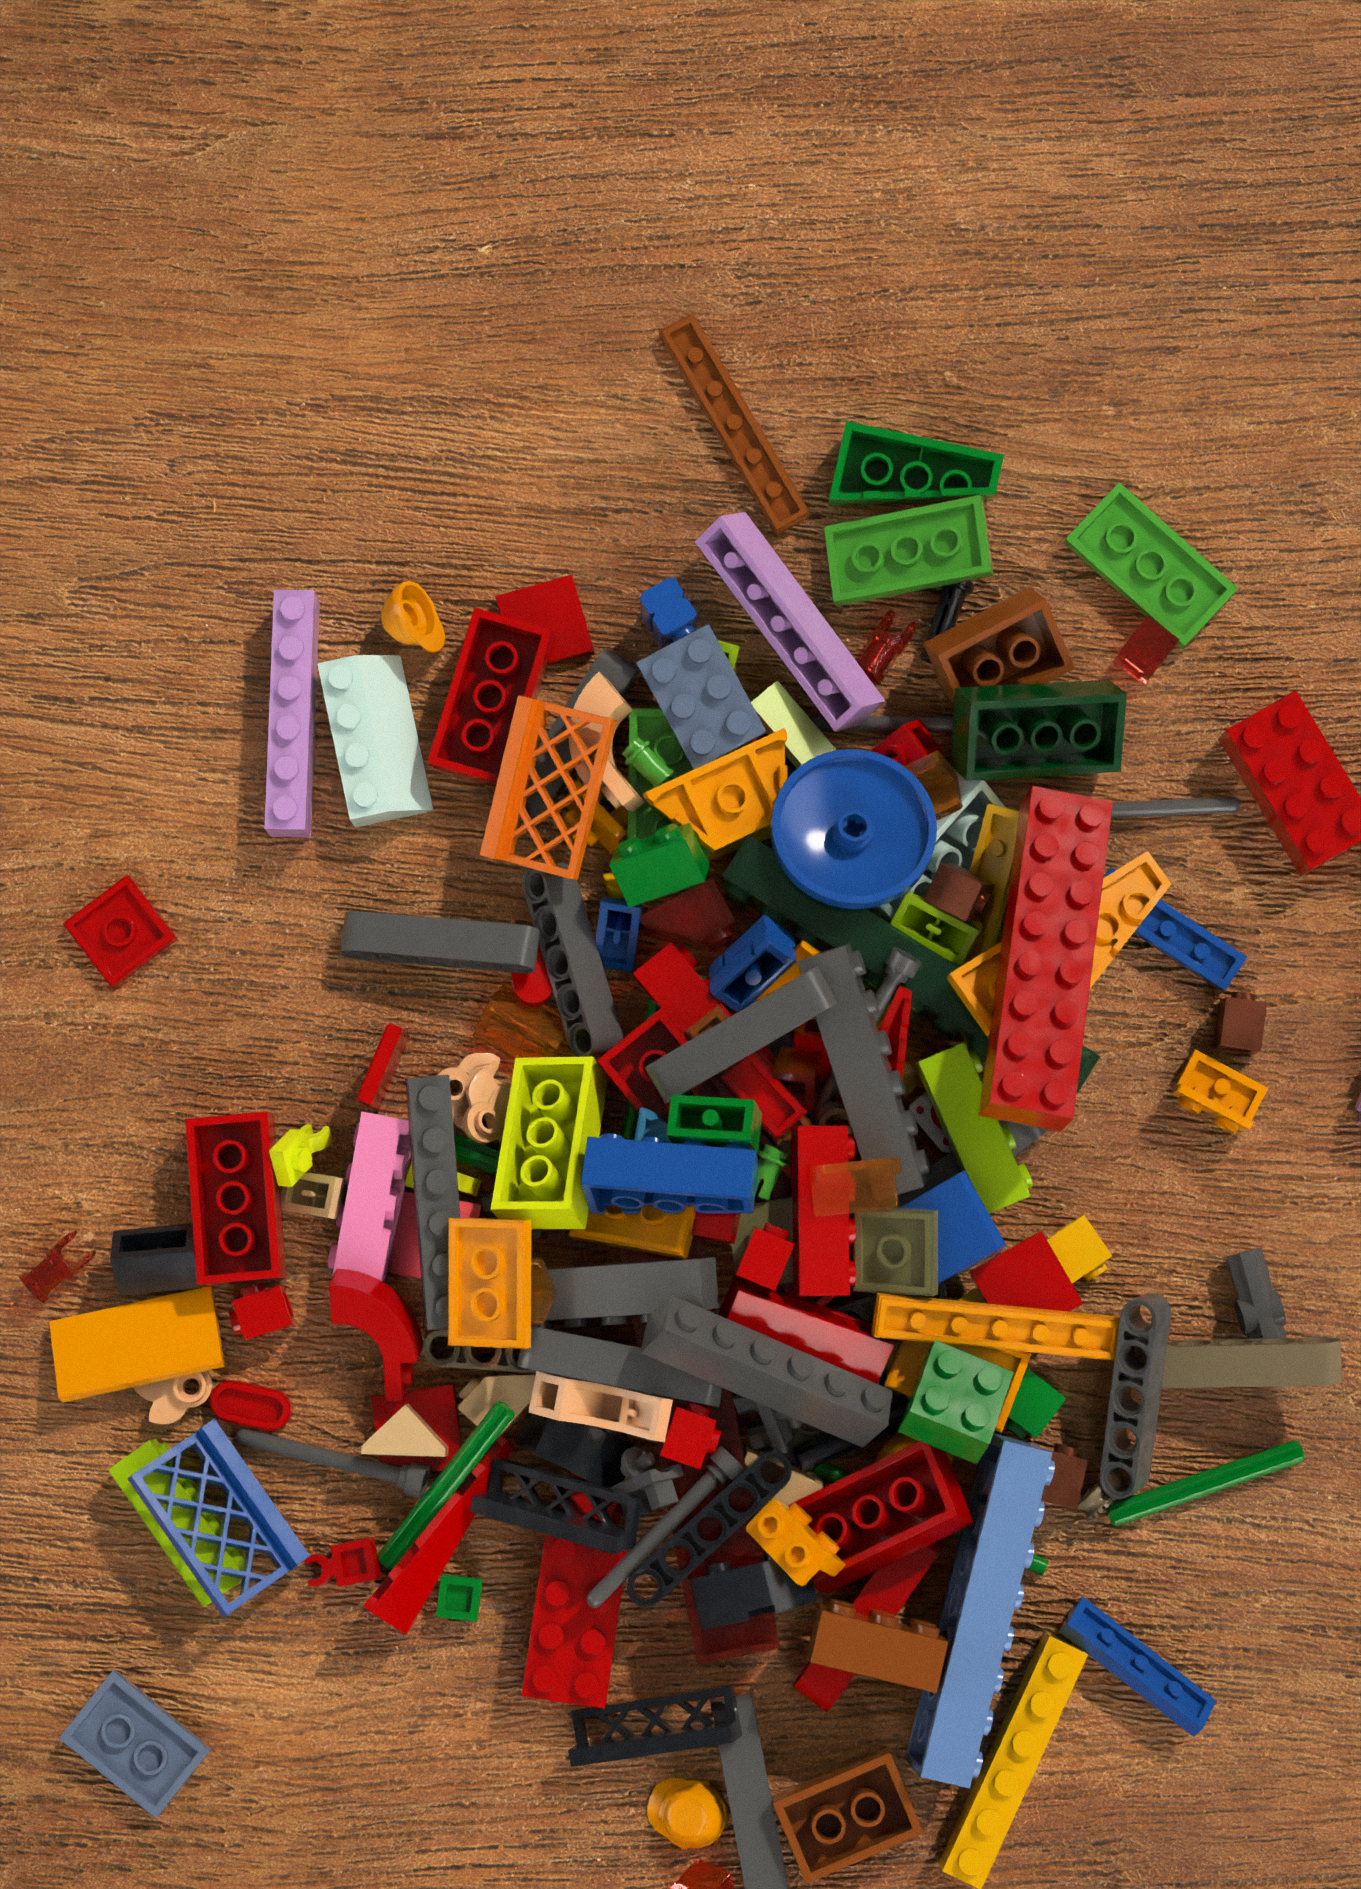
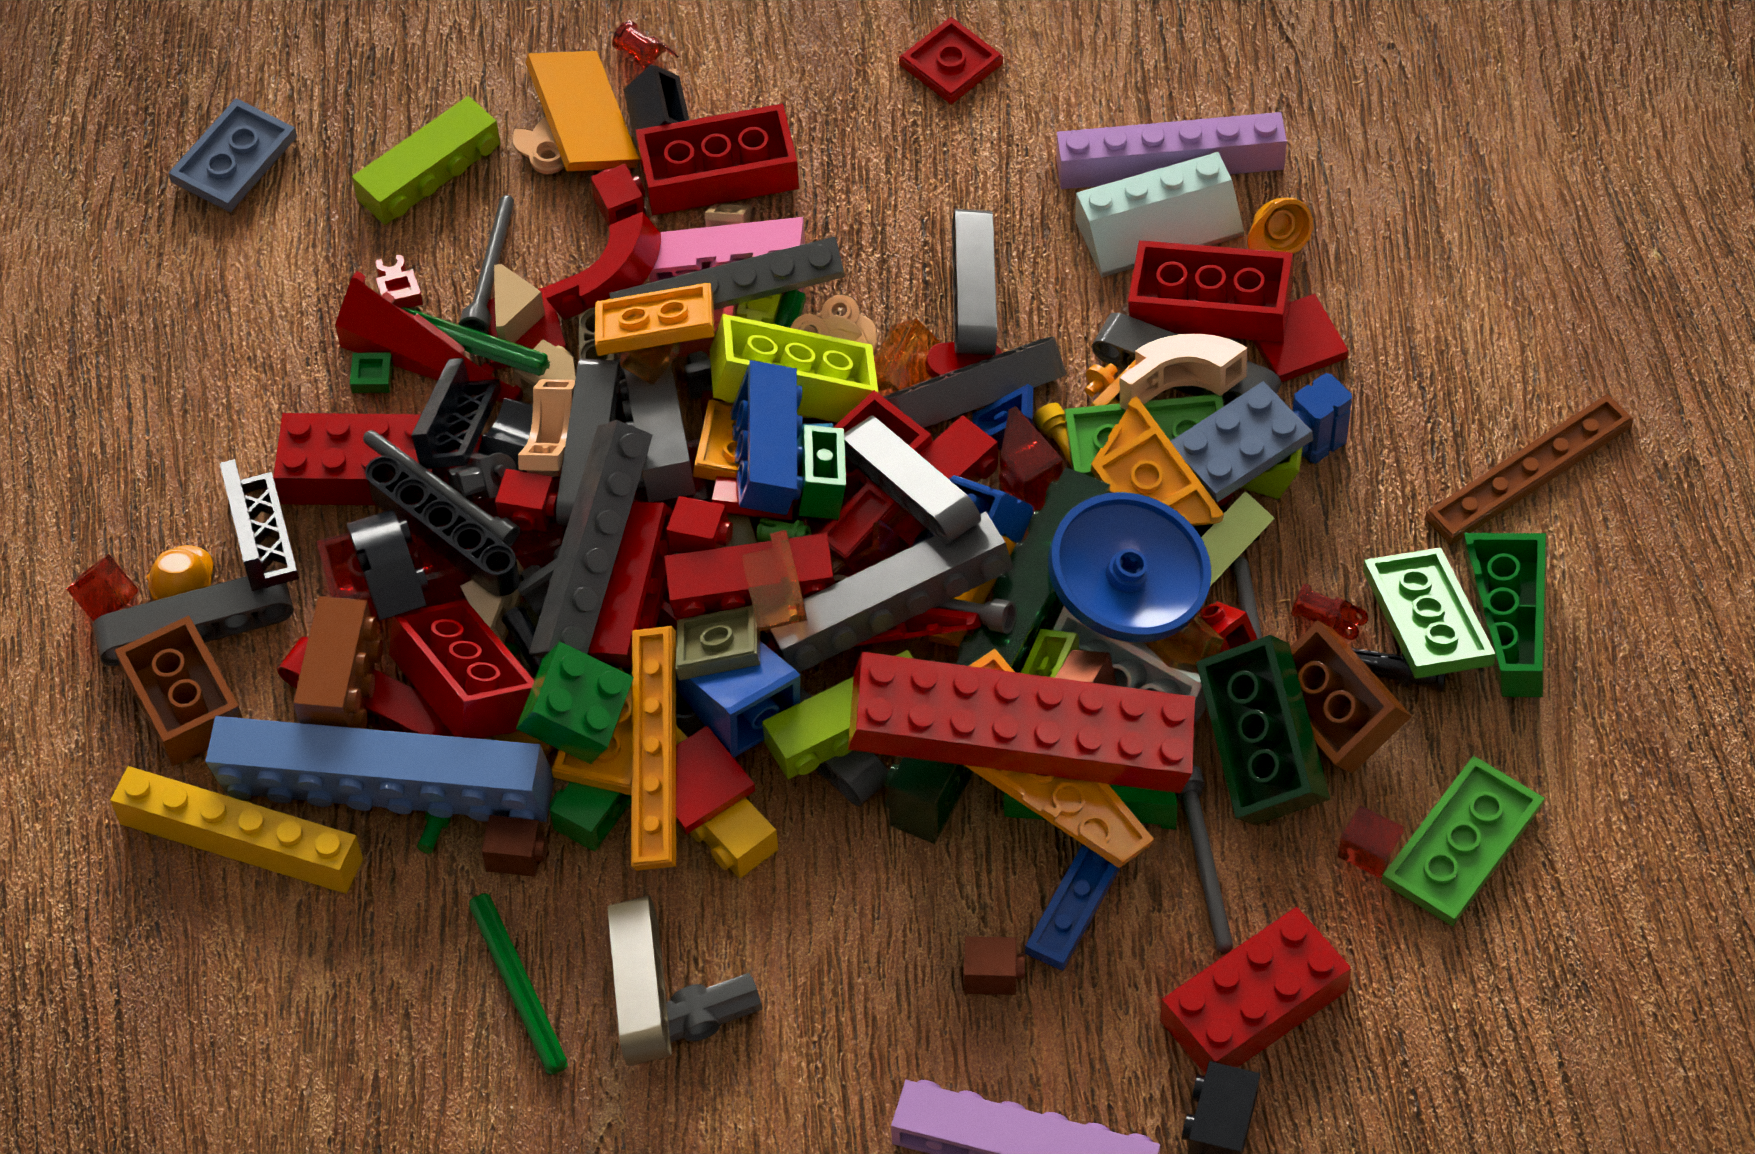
camera: 85 degrees right, 25 degrees down
(251, 1405) = (535, 204): red tile -> none
(251, 1505) = (449, 203): fence -> none
(293, 1153) = (761, 193): neon yellow plate -> none
(383, 1066) = (860, 245): red tile -> none
(515, 780) = (1143, 307): orange fence -> none
(647, 762) = (1175, 397): bright green pin -> none
(659, 864) = (1069, 418): green brick -> none
(790, 621) = (1334, 518): lavender brick -> none
(792, 1543) = (433, 589): light orange bracket -> none
(1093, 1501) = (493, 880): dark tan bush -> none
(1138, 1666) = (330, 933): blue plate -> none
(1148, 1382) = (598, 888): dark grey beam -> none
(1219, 1092) = (916, 952): light orange bracket -> none

